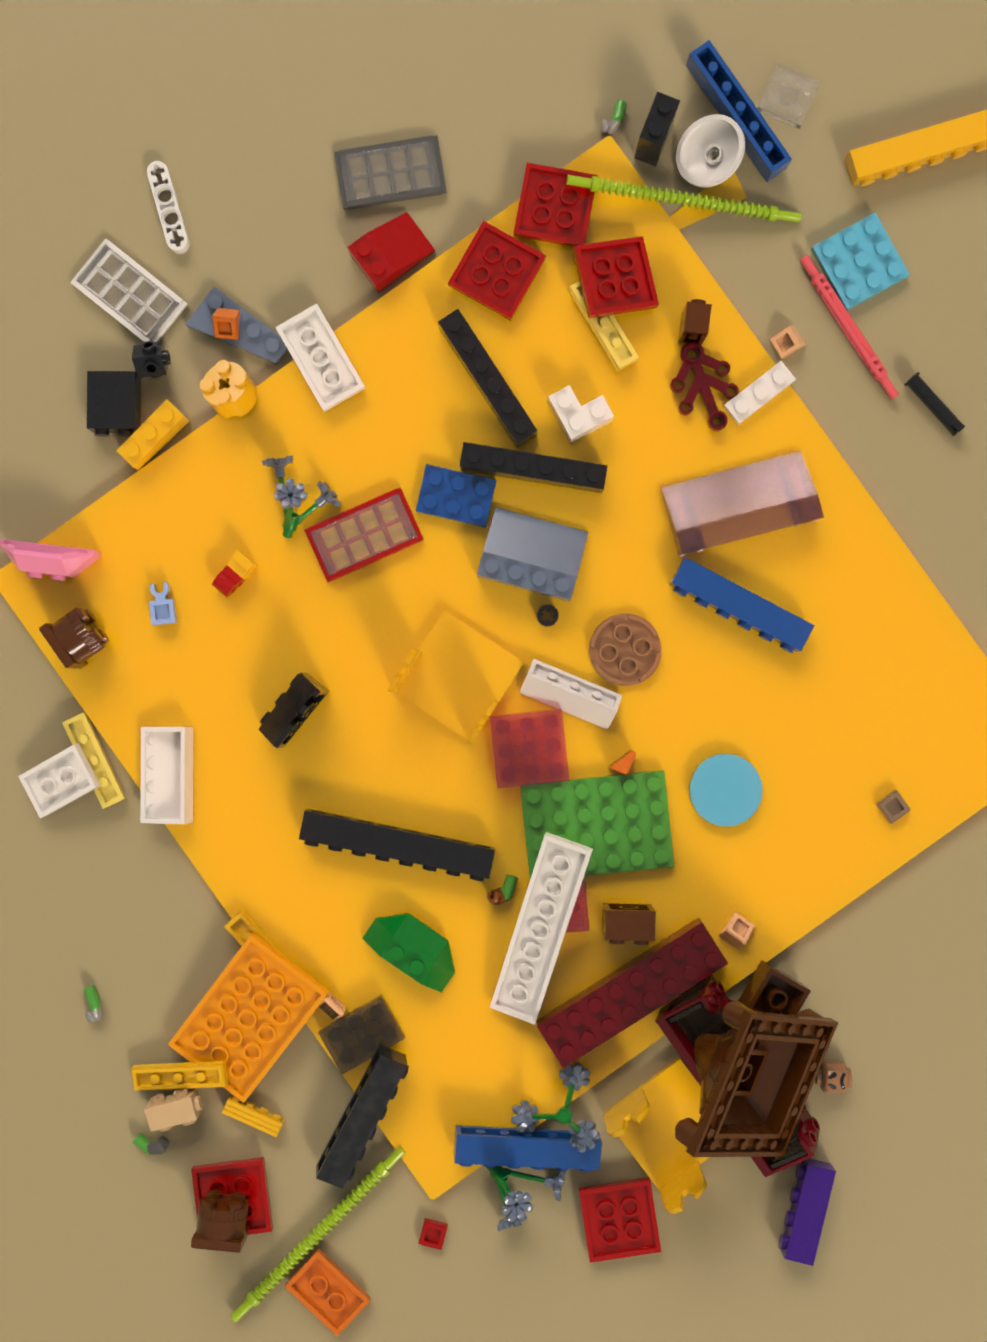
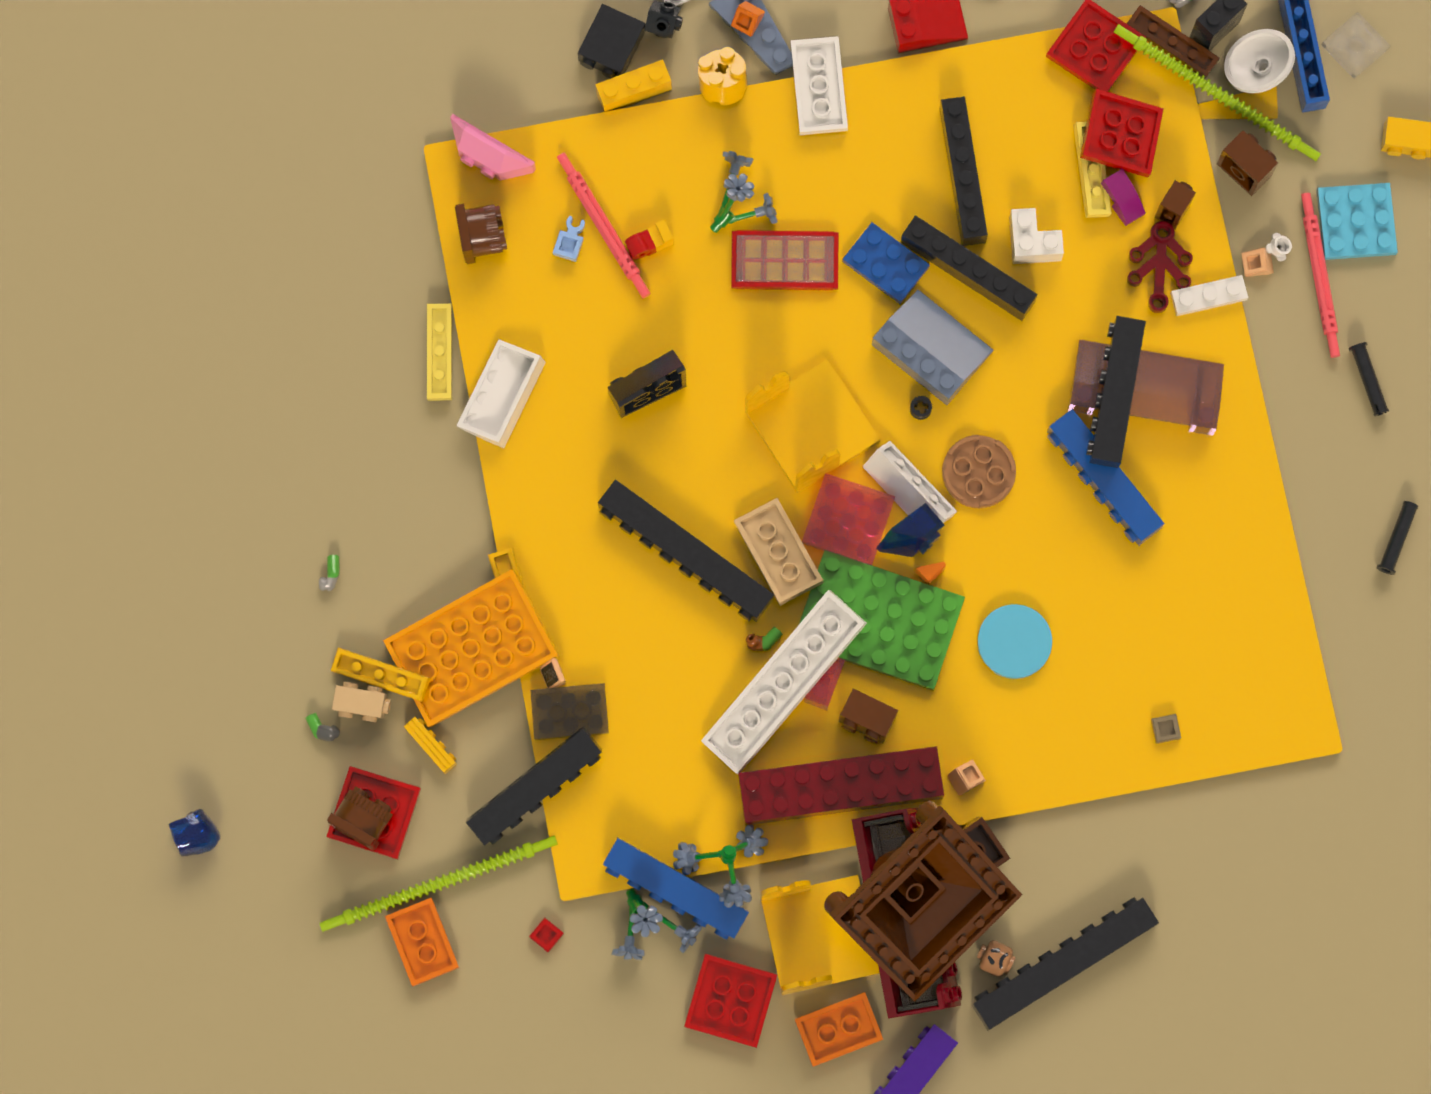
camera: 20 degrees right, 10 degrees down
(59, 780) = (400, 354): white plate -> none
(83, 1295) = (194, 833): none -> clear blue piece
(185, 577) = (603, 225): none -> coral axle
(412, 949) = (655, 654): green wedge -> none
(480, 807) = (778, 551): none -> tan plate
(497, 270) = (1016, 80): red plate -> none
(596, 737) = (913, 533): none -> clear blue slope
(623, 168) = (1173, 41): none -> reddish brown plate
(644, 336) = (1125, 198): none -> magenta slope
(721, 525) = (1117, 391): none -> black brick
(725, 1201) = (838, 1029): none -> orange plate
(742, 252) = (1247, 162): none -> reddish brown brick
(805, 314) = (1284, 244): none -> white plate
(895, 1055) = (1064, 964): none -> black brick

